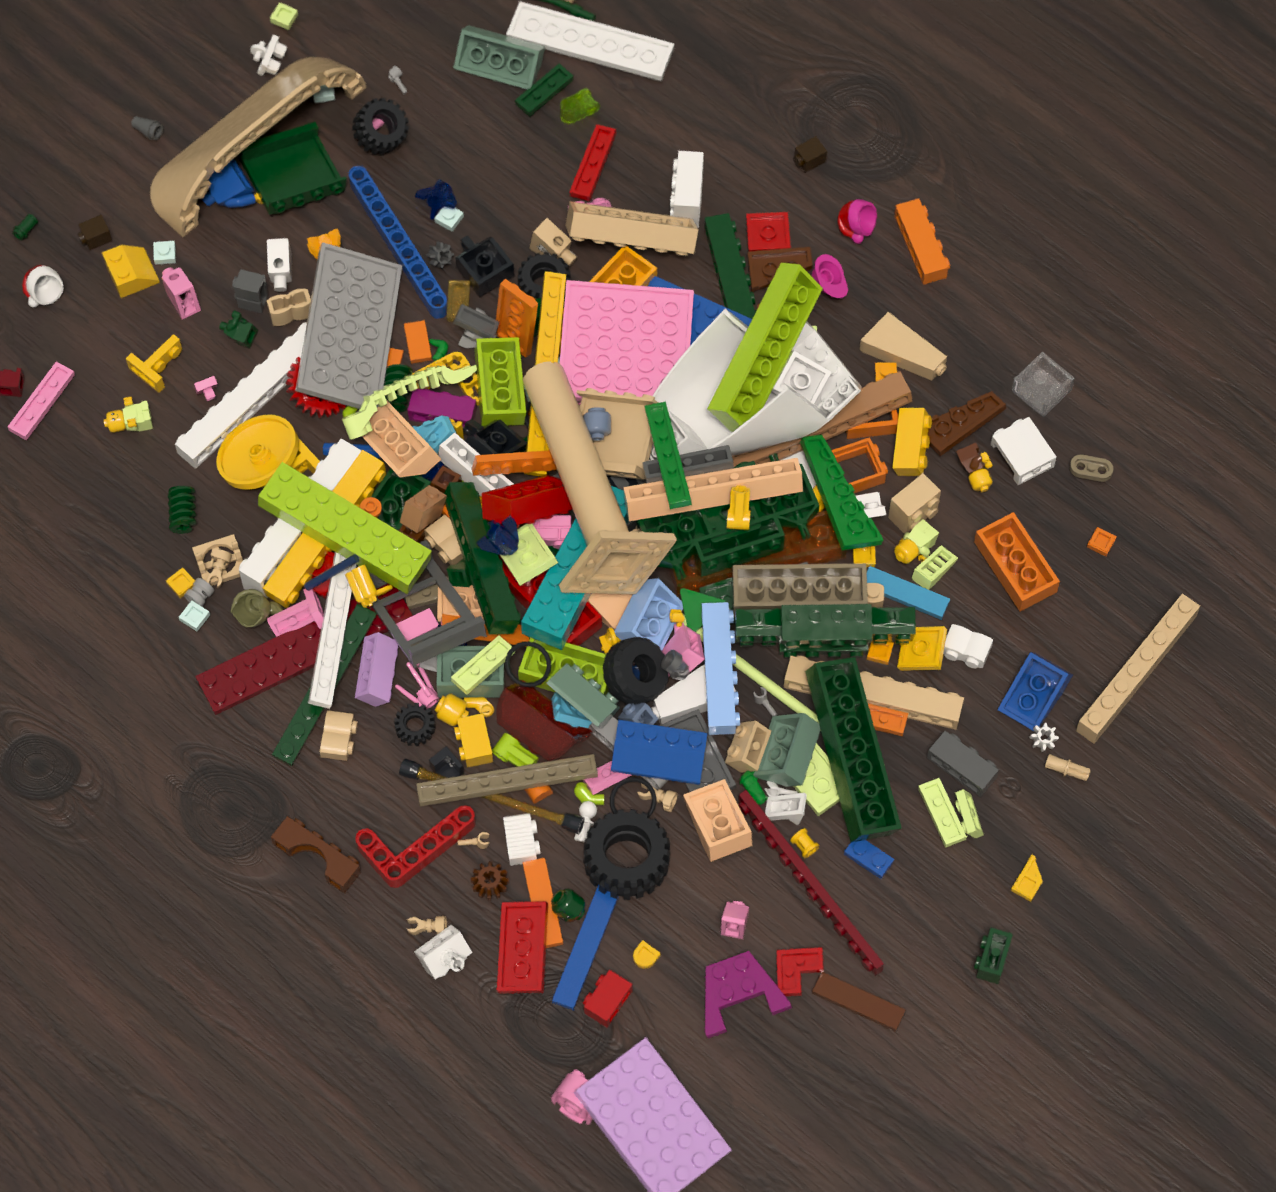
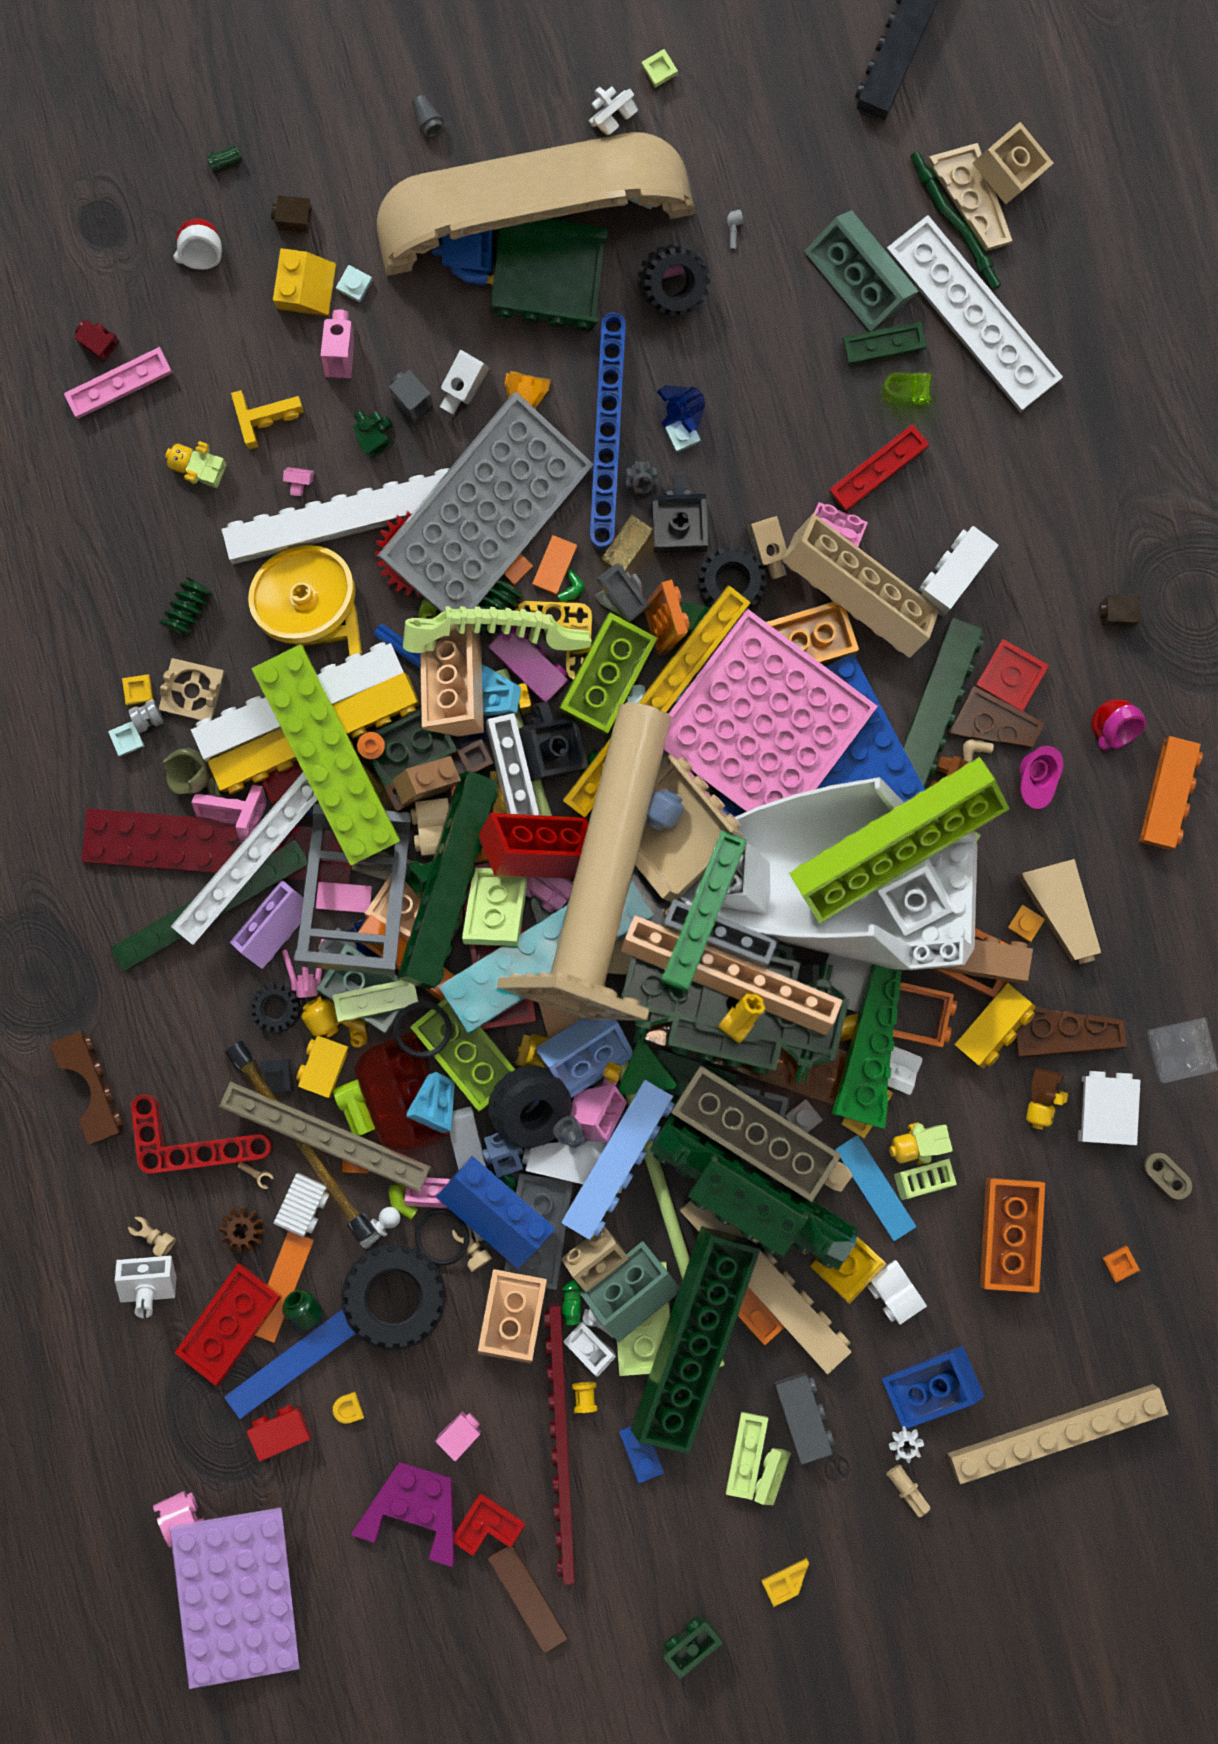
camera: 30 degrees right, 20 degrees up
(220, 557) = (191, 692): tan piece -> none
(289, 307) = (435, 439): tan brick -> none
(331, 572) = (284, 794): dark blue bar -> none
(337, 735) = (189, 970): tan brick -> none
(363, 586) = (307, 832): yellow piece -> none
(502, 538) = (477, 877): clear blue brick -> none
(513, 463) = (545, 789): orange plate -> none
(584, 694) = (453, 1105): sand green slope -> none
(763, 700) = (648, 1215): light grey hand -> none
(914, 503) = (949, 1102): tan brick -> none

